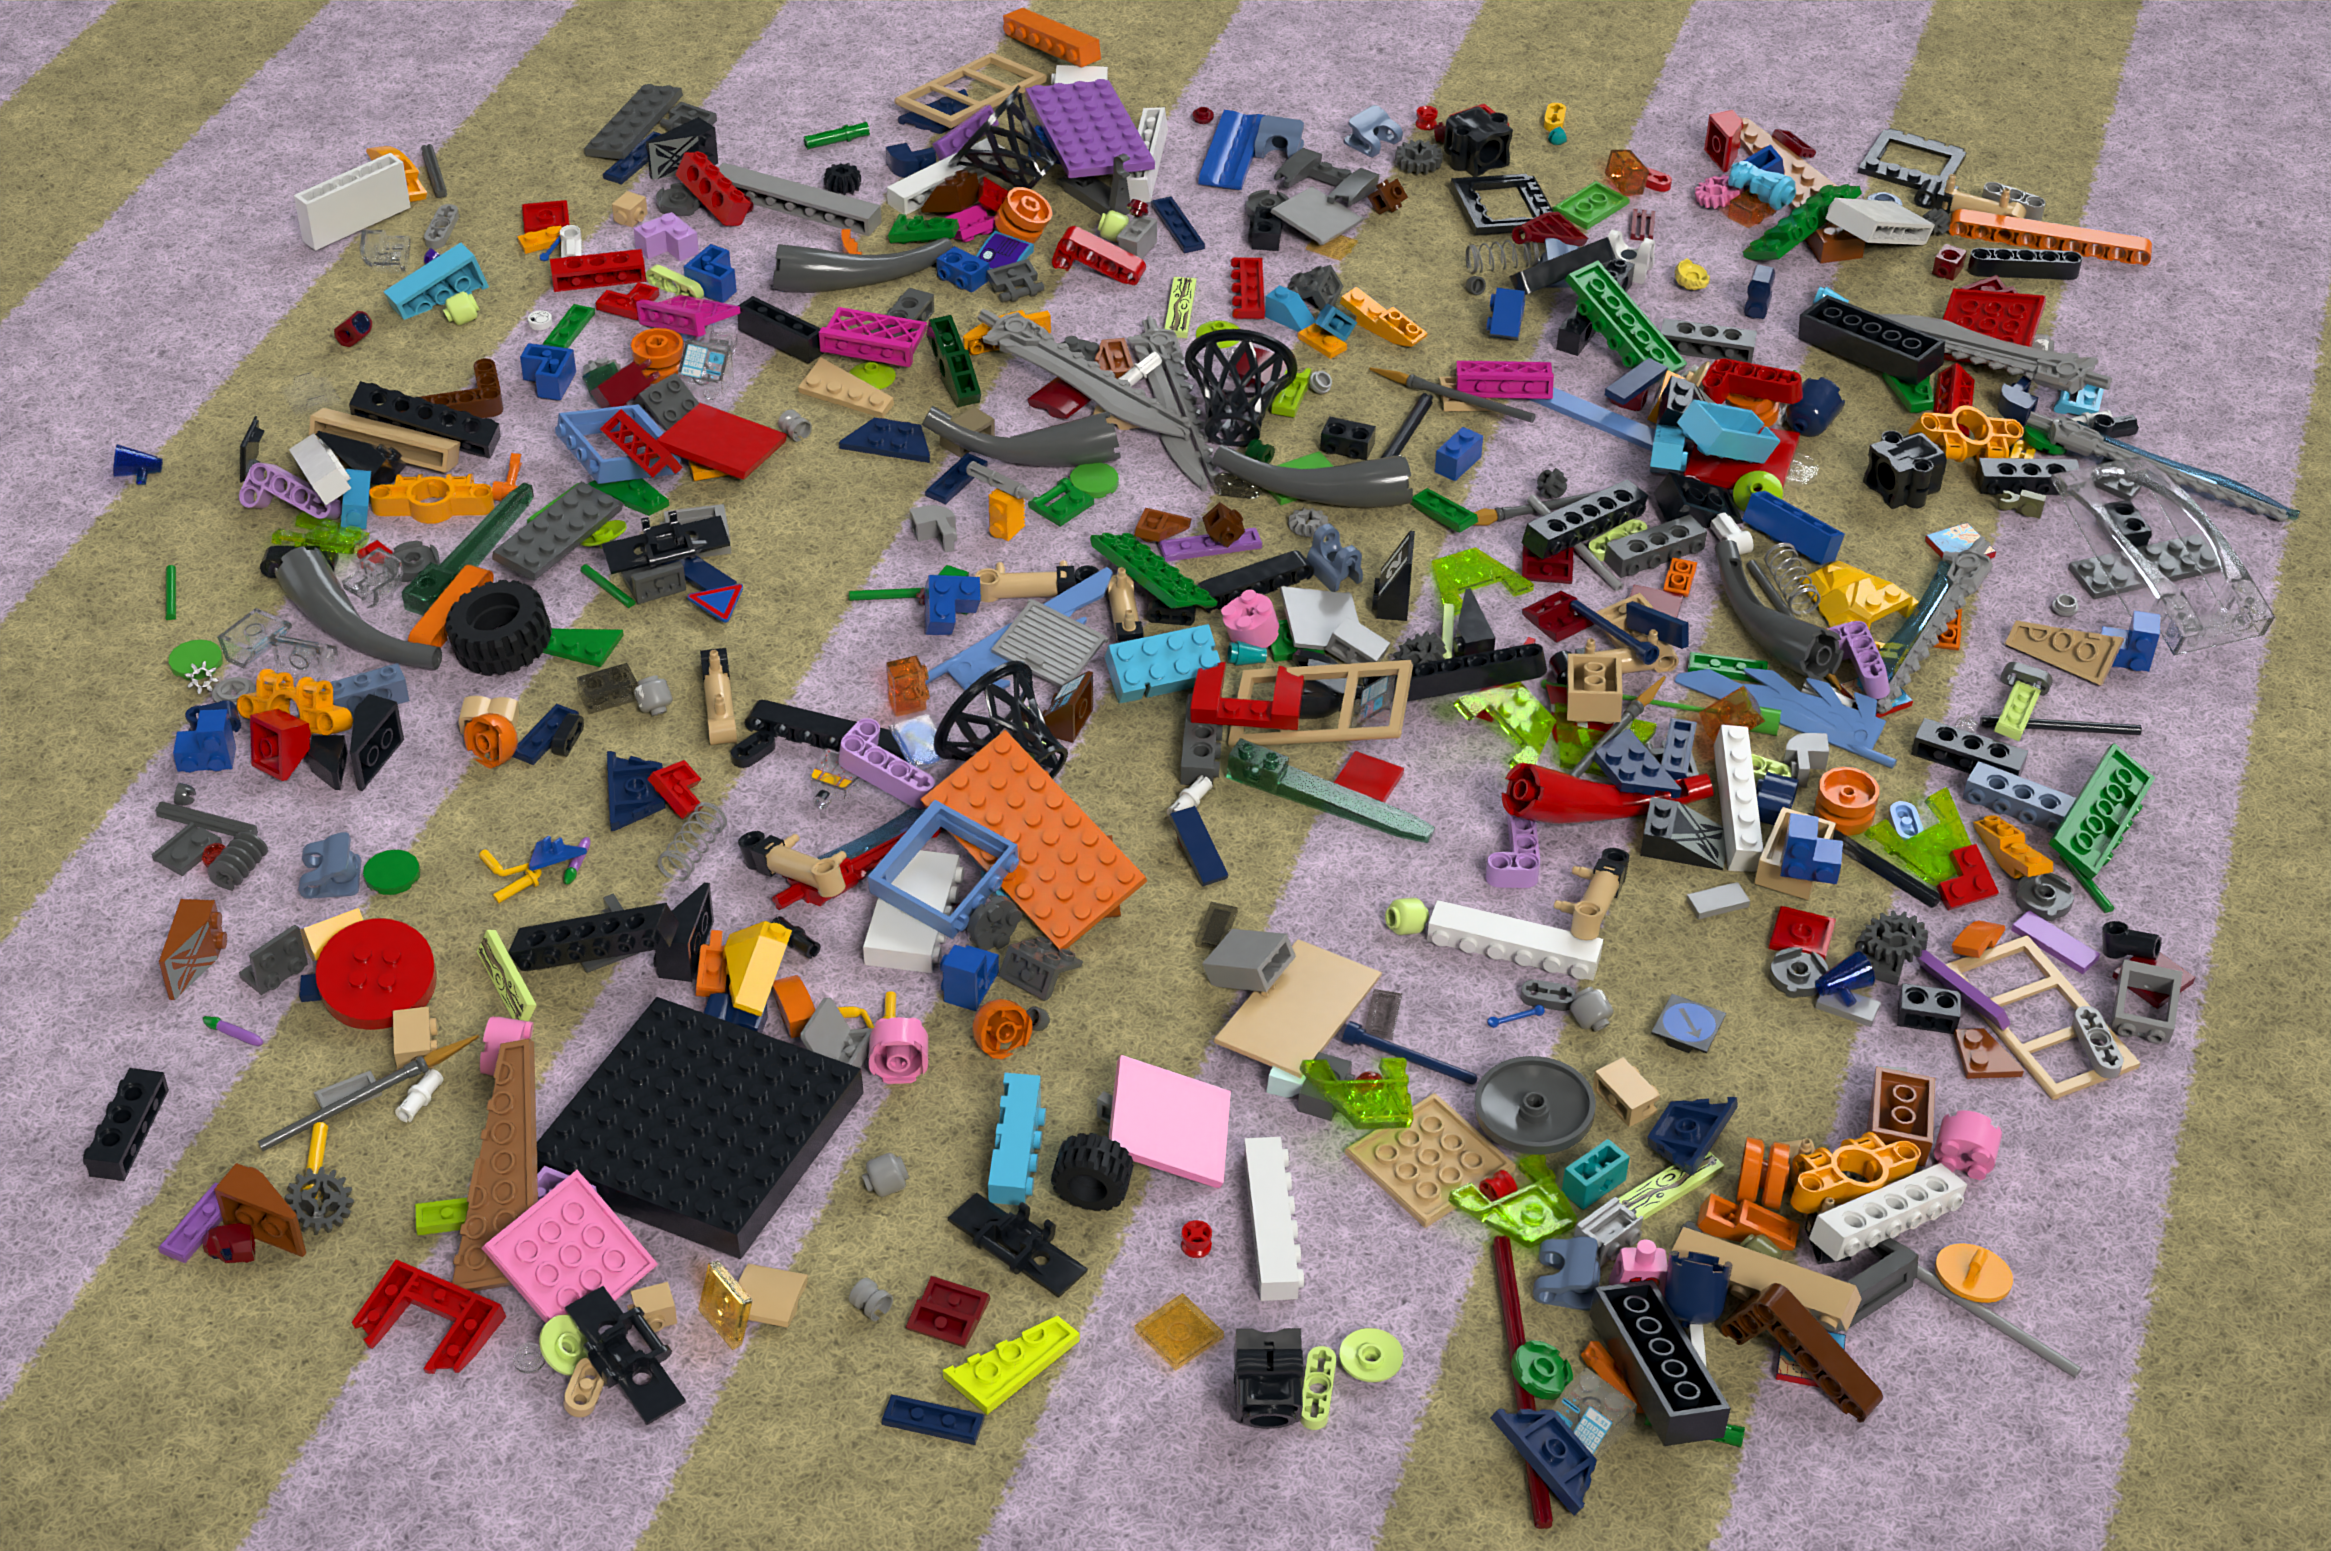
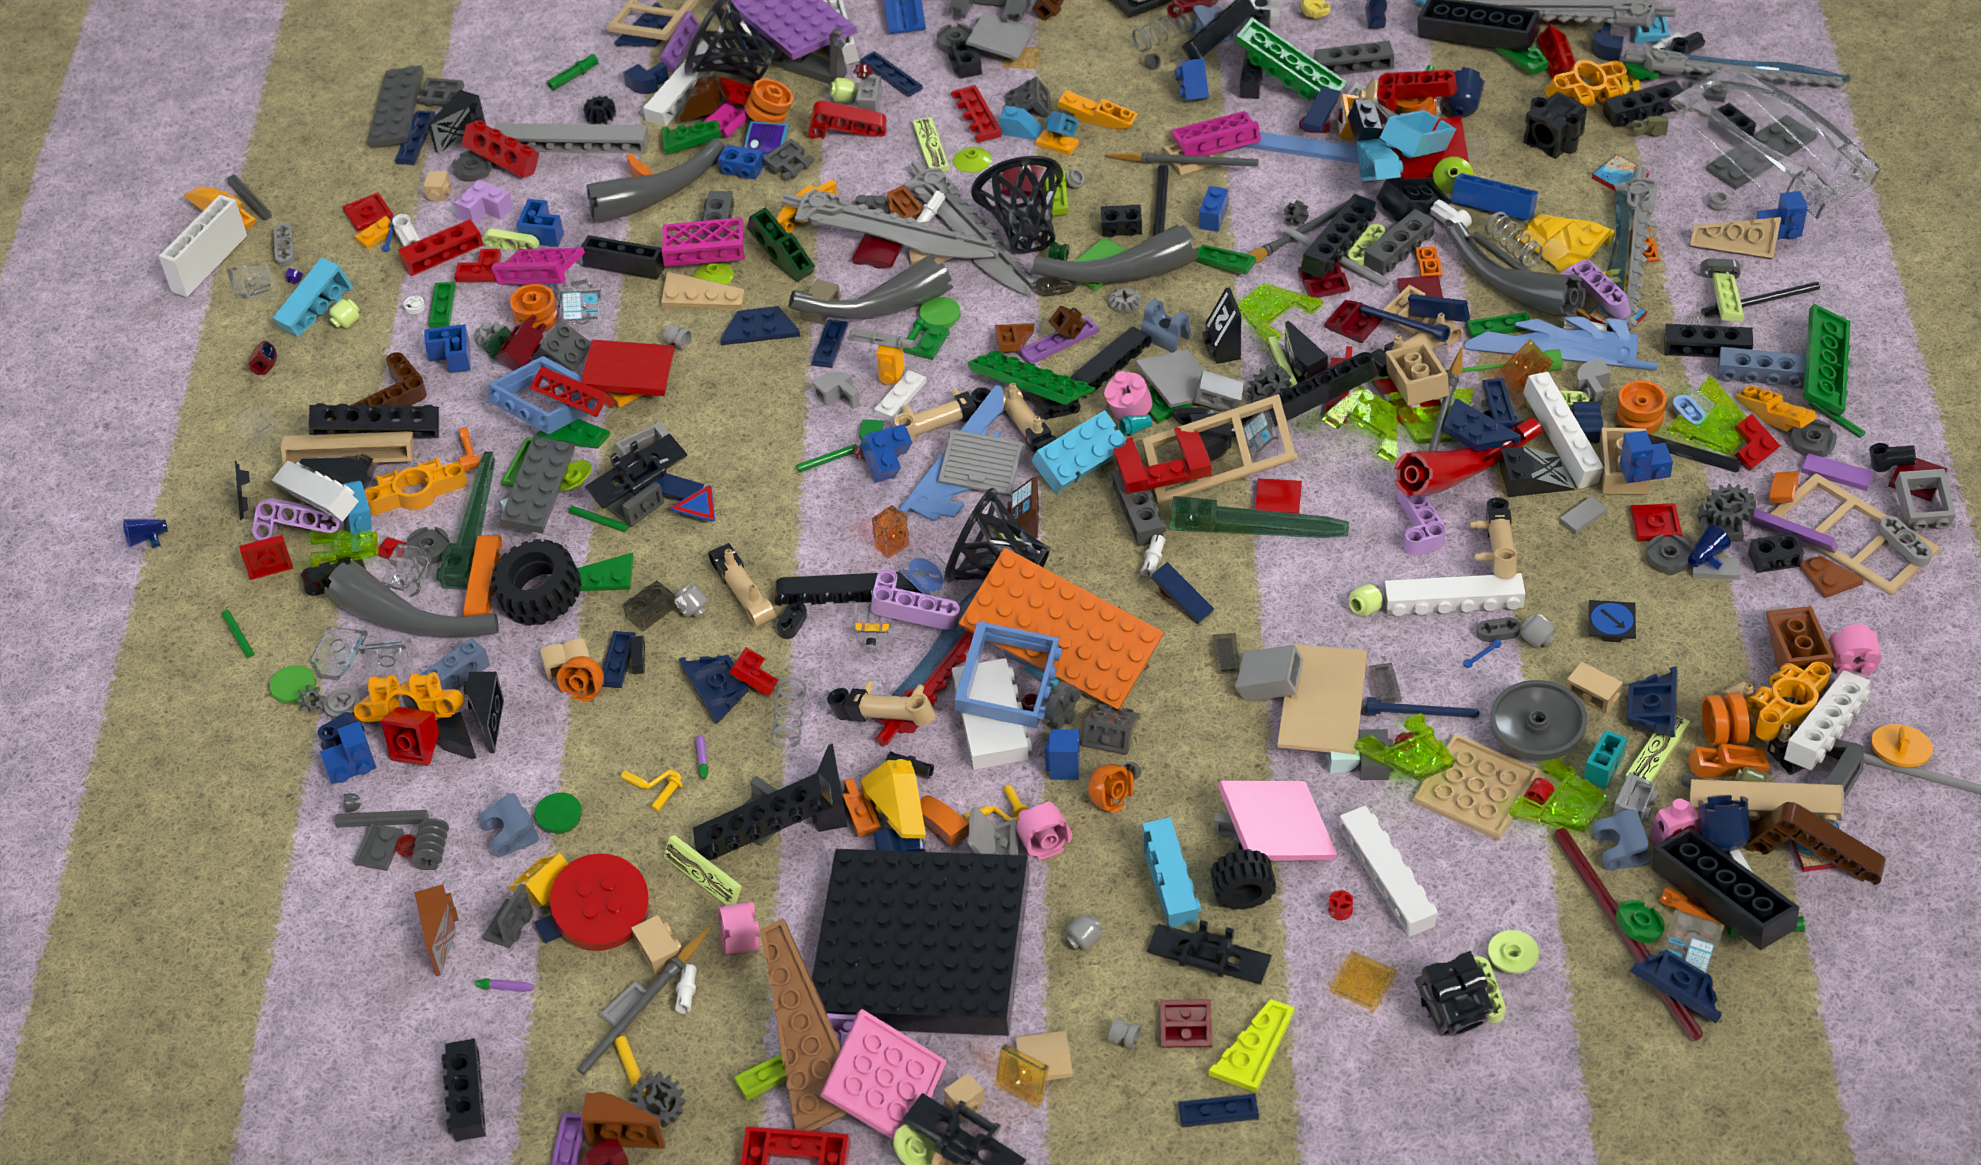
camera: 15 degrees left, 5 degrees up
(237, 522) = (266, 557): none -> red tile
(550, 853) = (680, 758): blue piece -> none
(1004, 551) = (900, 395): none -> white plate

